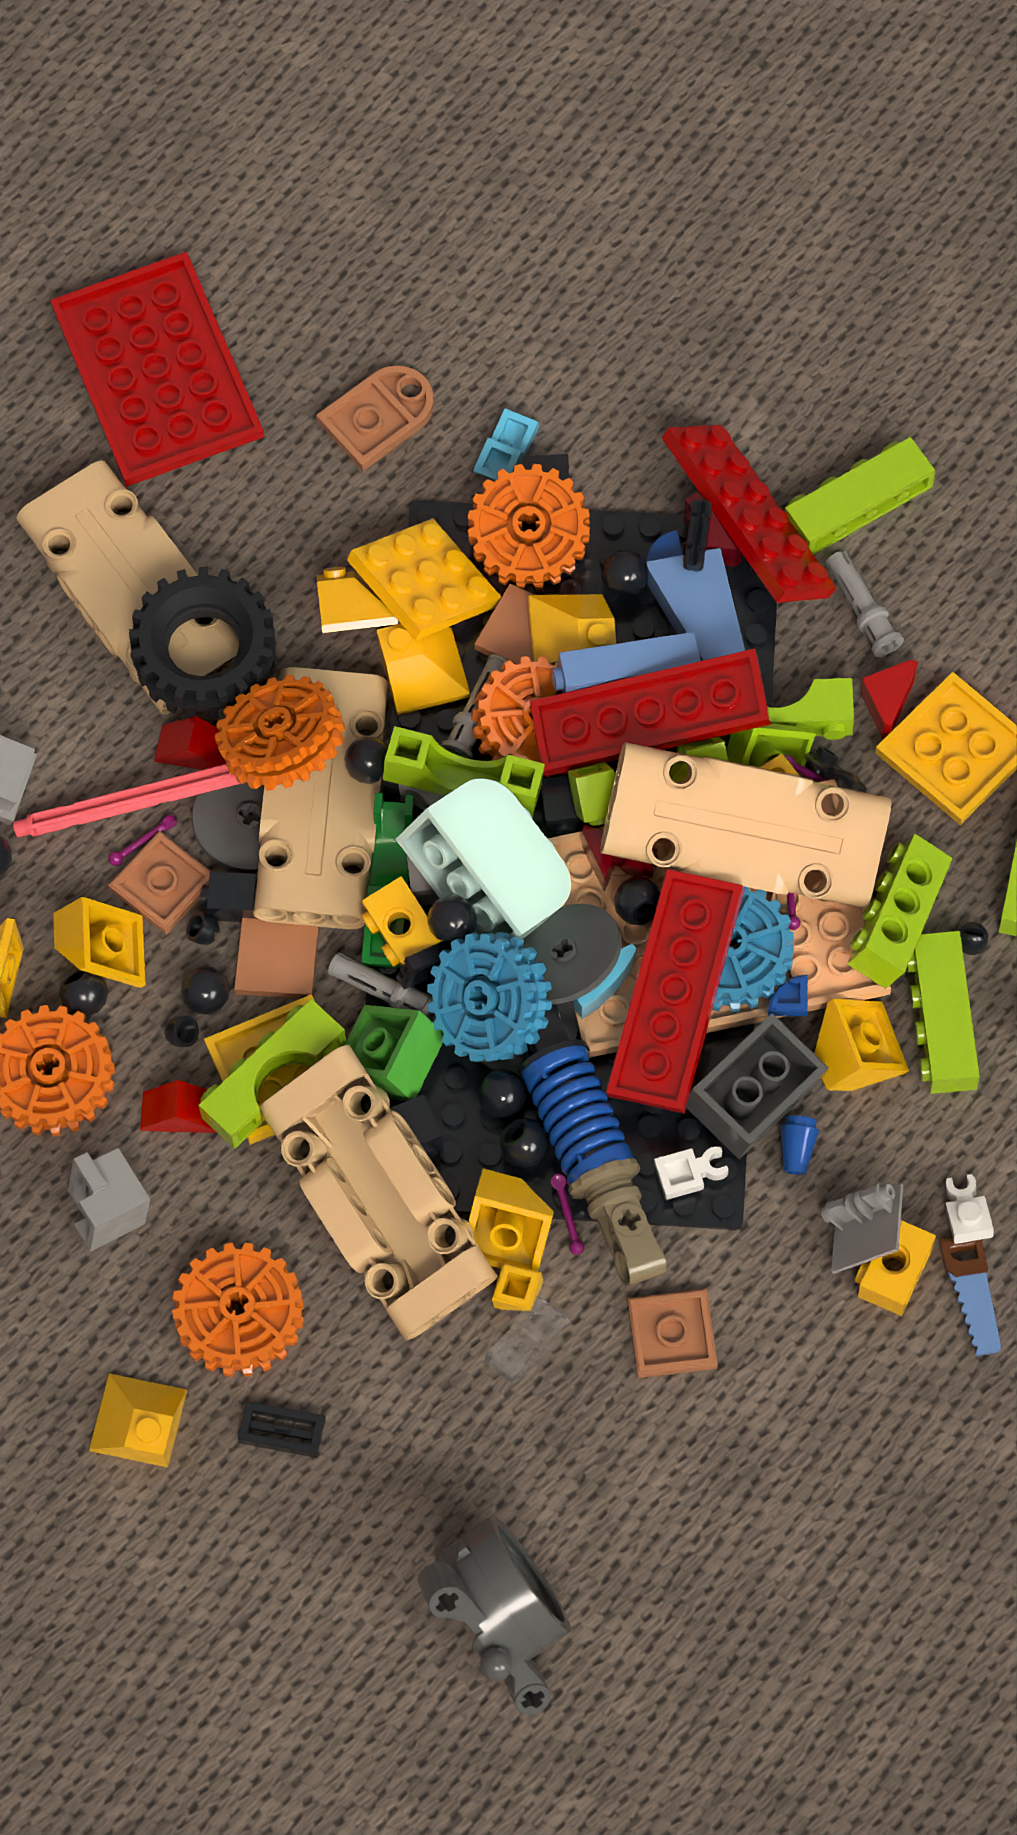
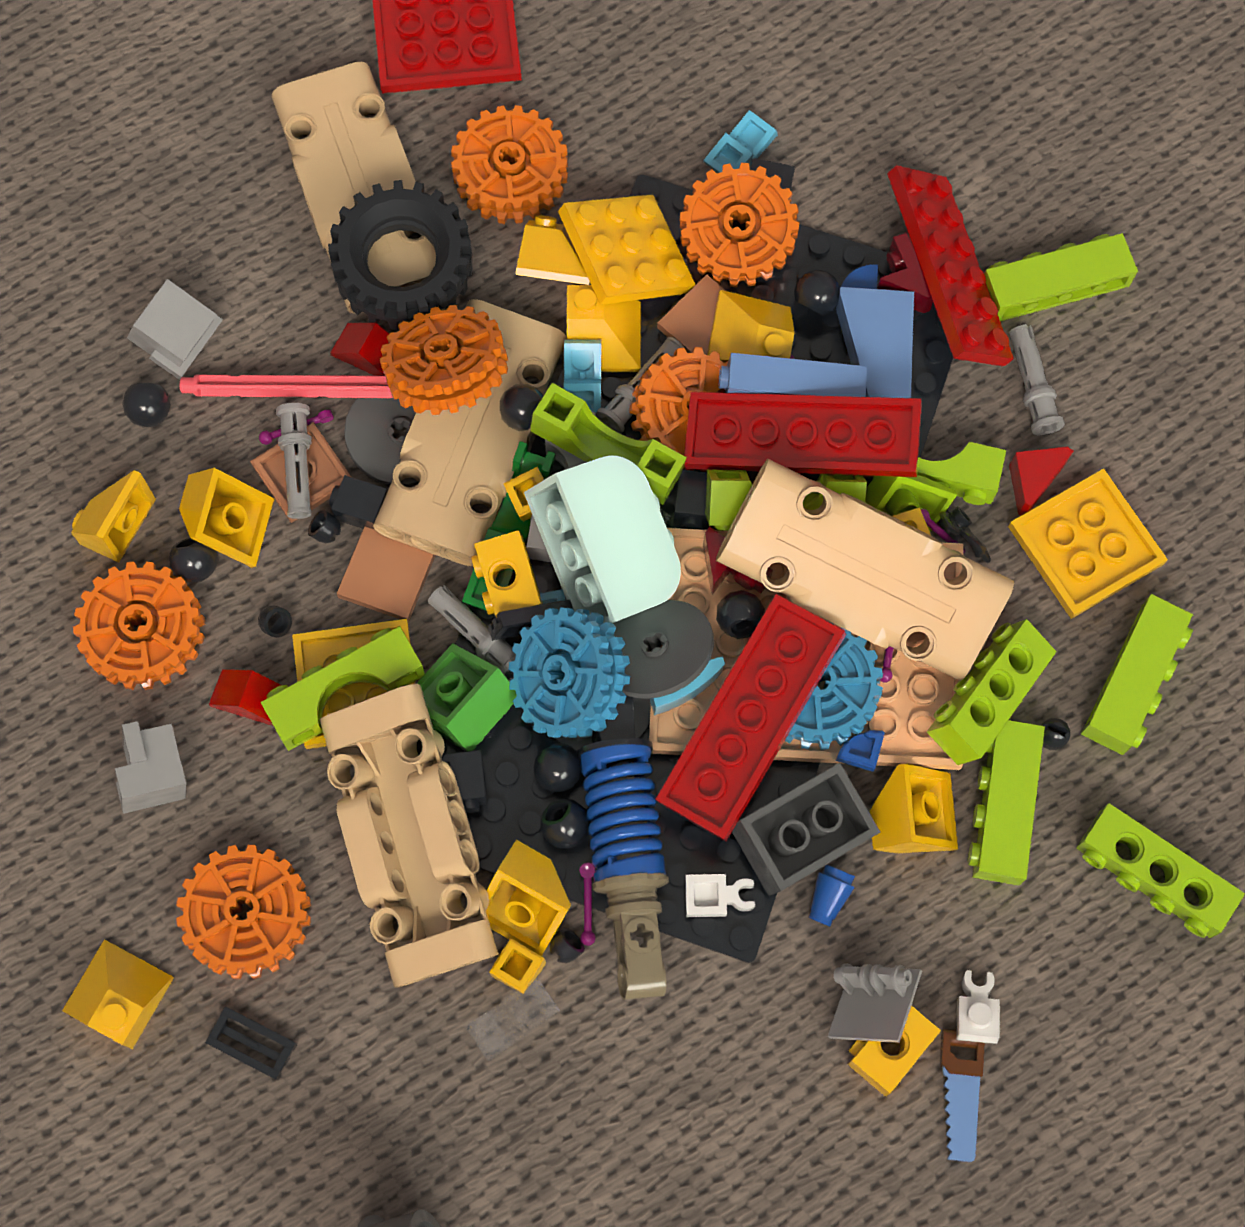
camera: 10 degrees right, 5 degrees up
(150, 855) = (299, 442): none -> light grey pin
(205, 990) = (308, 587): black piece -> none
(279, 525) = (509, 164): none -> orange piece
(377, 415) = (630, 86): nougat tile -> none
(386, 841) = (517, 487): none -> yellow slope
(415, 706) = (583, 370): none -> medium azure slope
(451, 918) = (554, 586): black piece -> none
(558, 1258) = (566, 945): none -> black hinge
(672, 1333) = (656, 1052): nougat tile -> none
(697, 535) = (895, 274): black axle -> none

